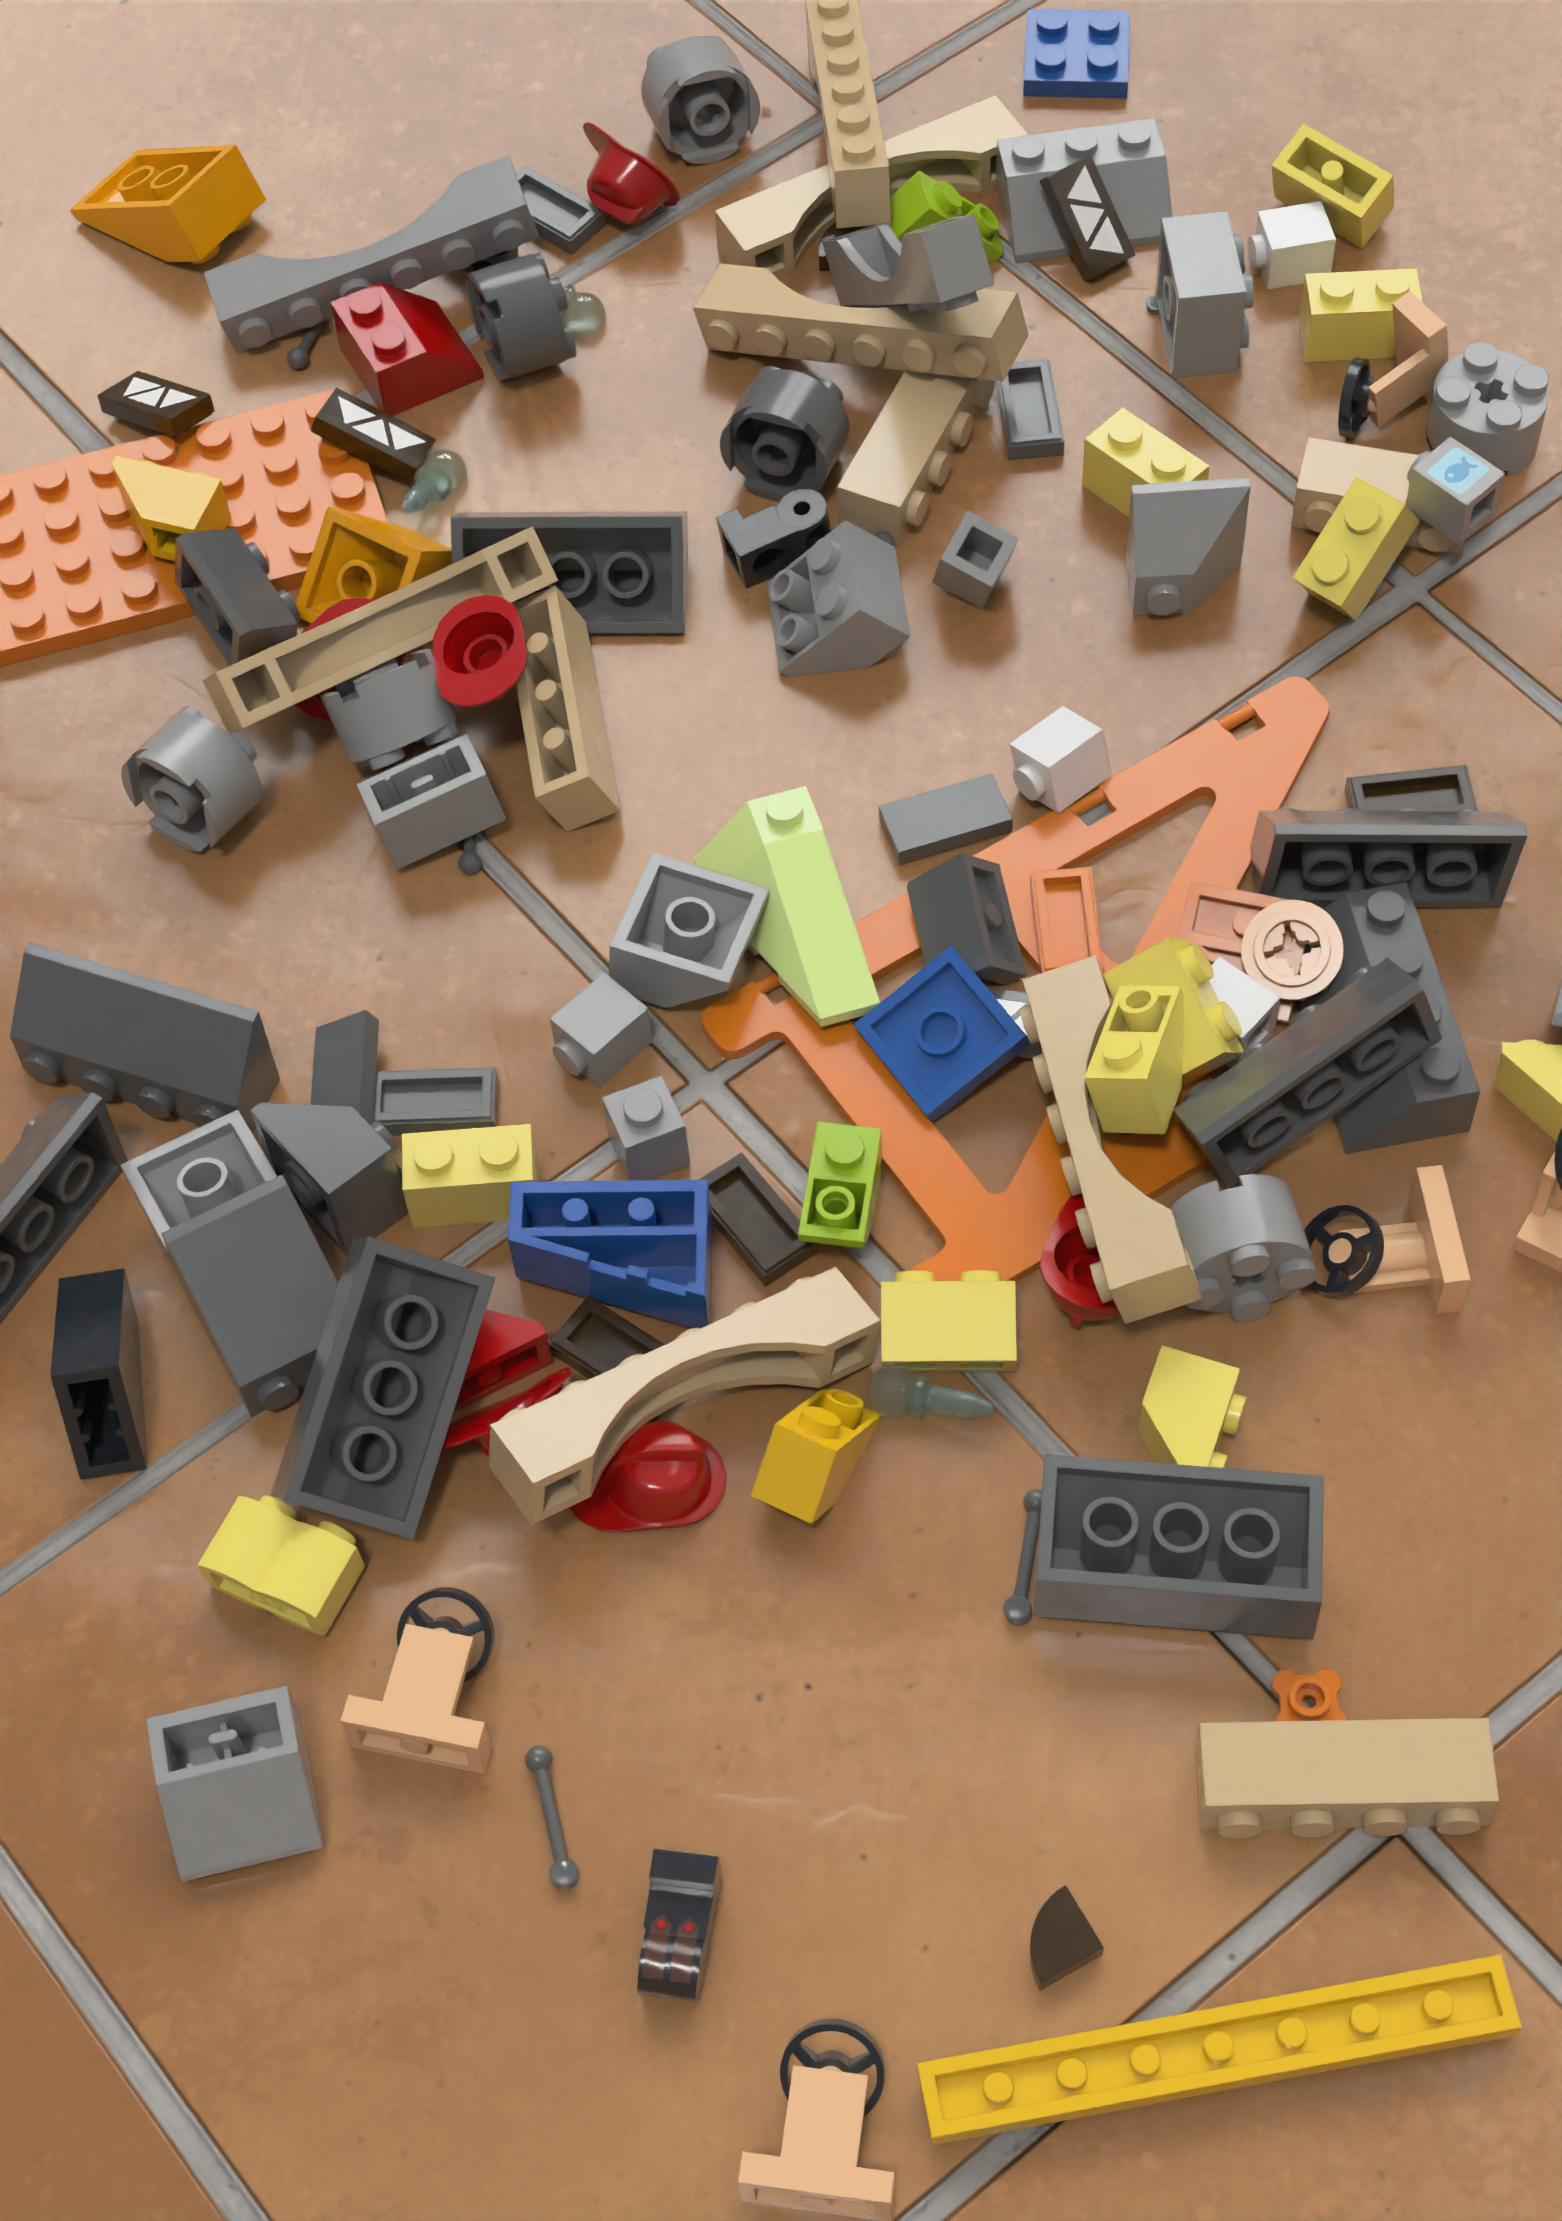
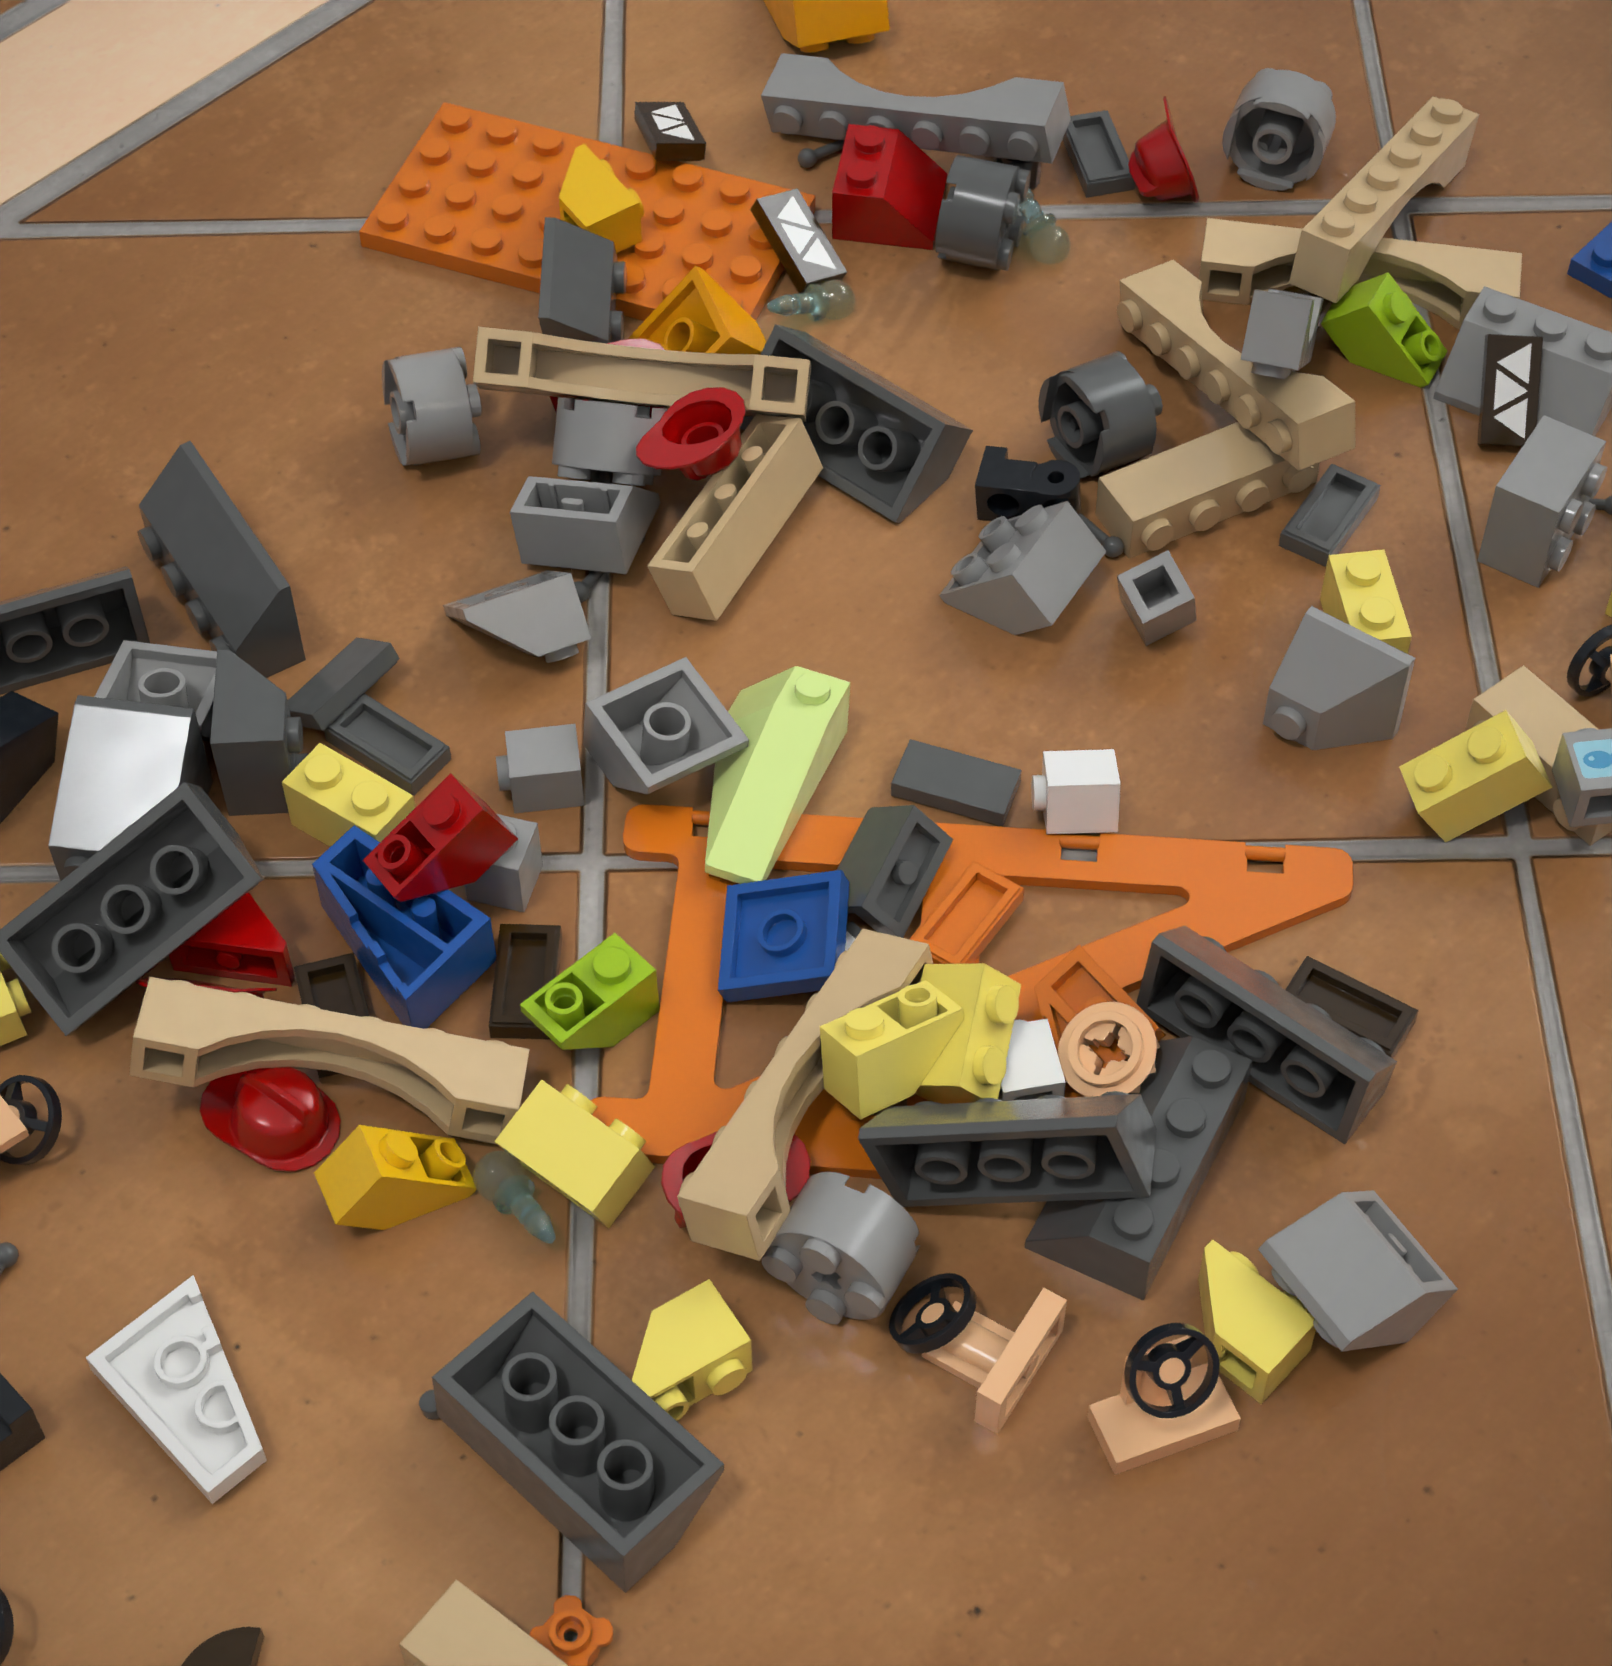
camera: 35 degrees right, 5 degrees down
(454, 905) = (530, 614): none -> light grey slope
(615, 1144) = (440, 843): none -> red slope
(808, 1754) = (182, 1390): none -> white wing

